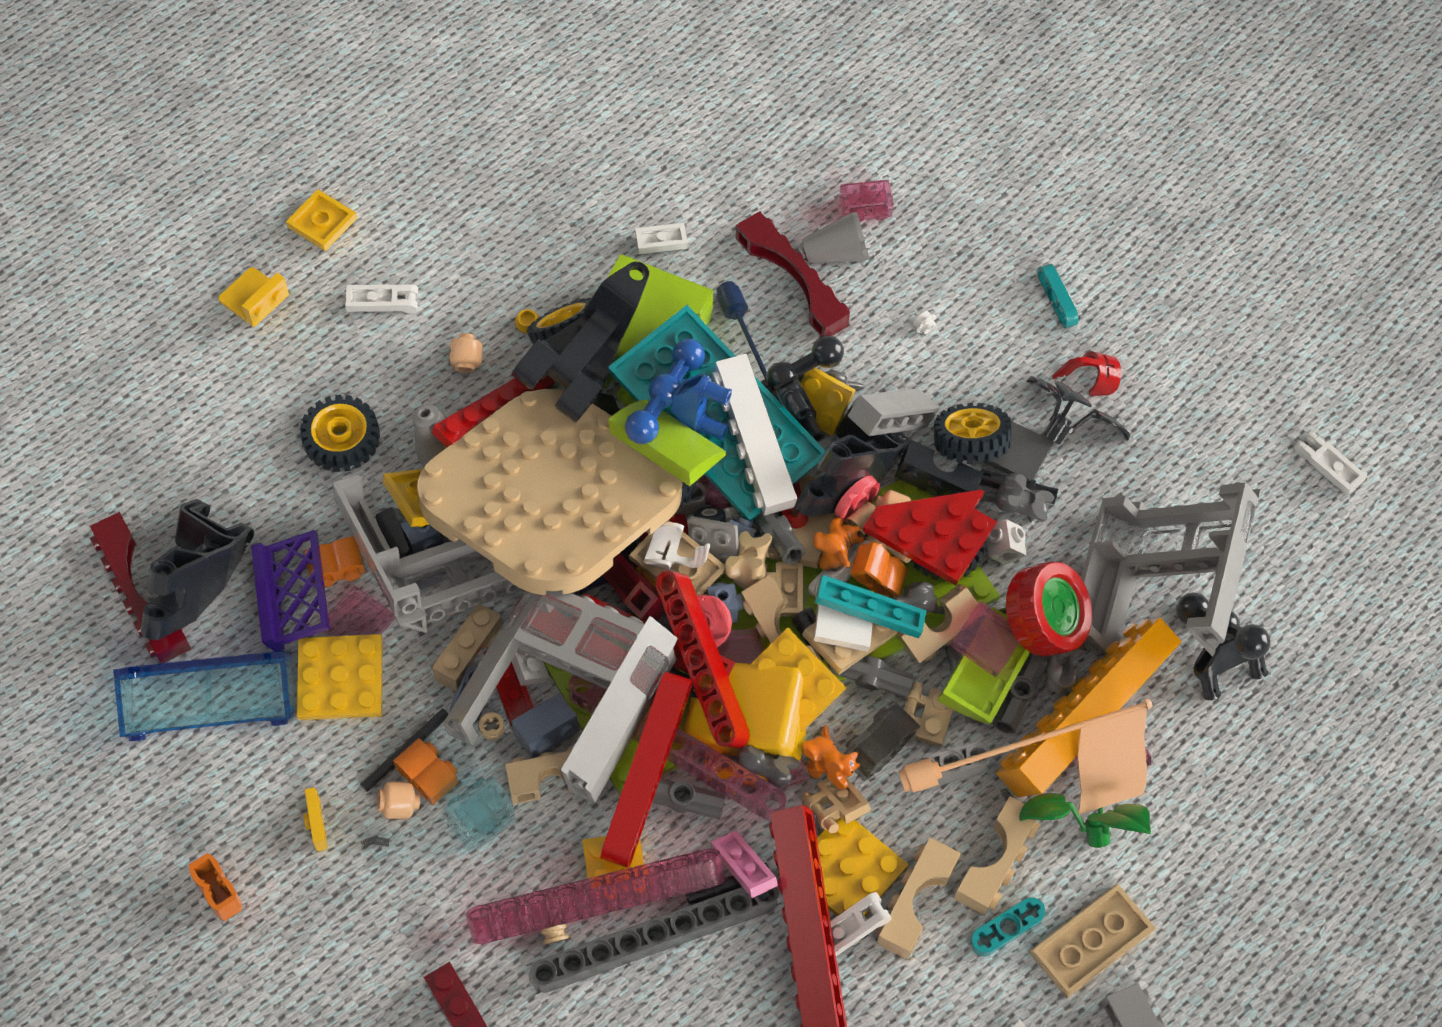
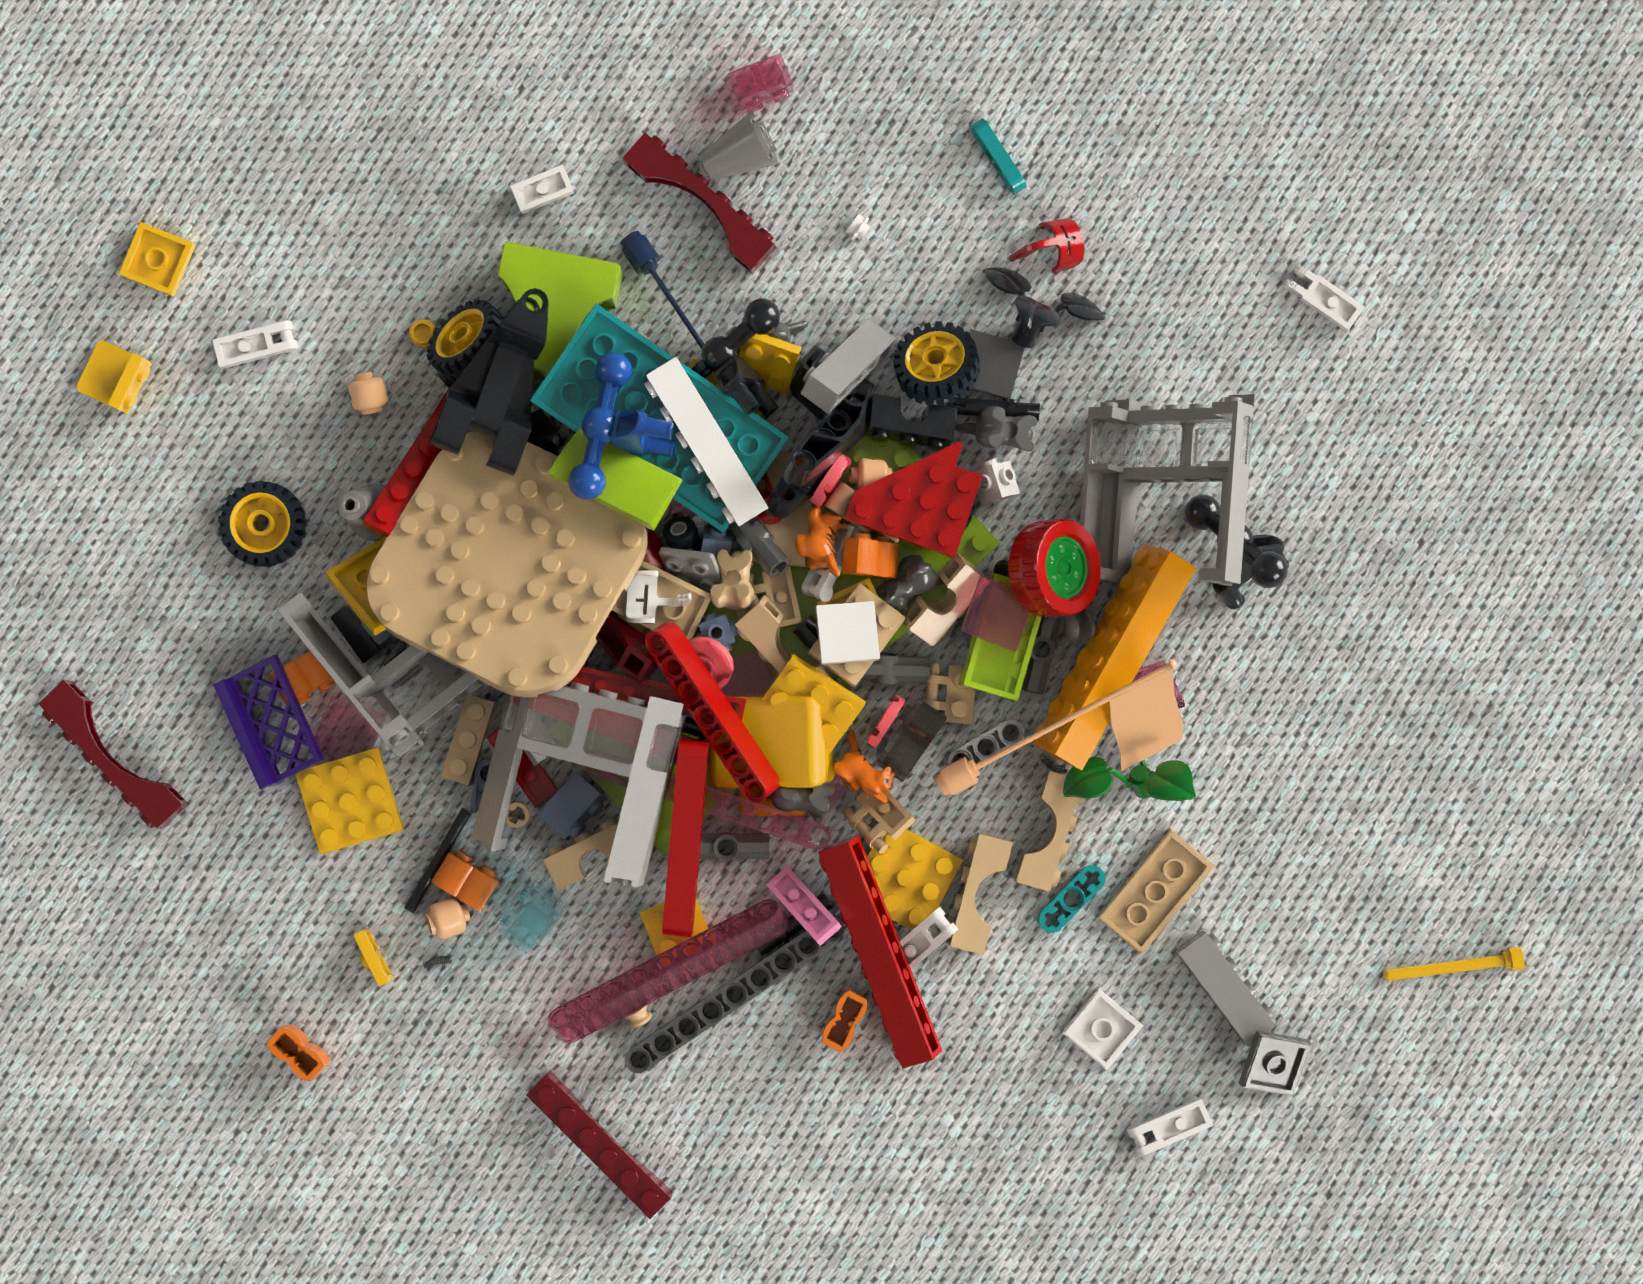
camera: 10 degrees left, 25 degrees up
(194, 573) = (167, 753): black piece -> none
(204, 693) = (218, 851): clear light blue windscreen -> none
(753, 987) = (840, 1026): none -> orange brick
(862, 716) = (885, 721): none -> coral tile
(870, 606) = (871, 614): teal plate -> none

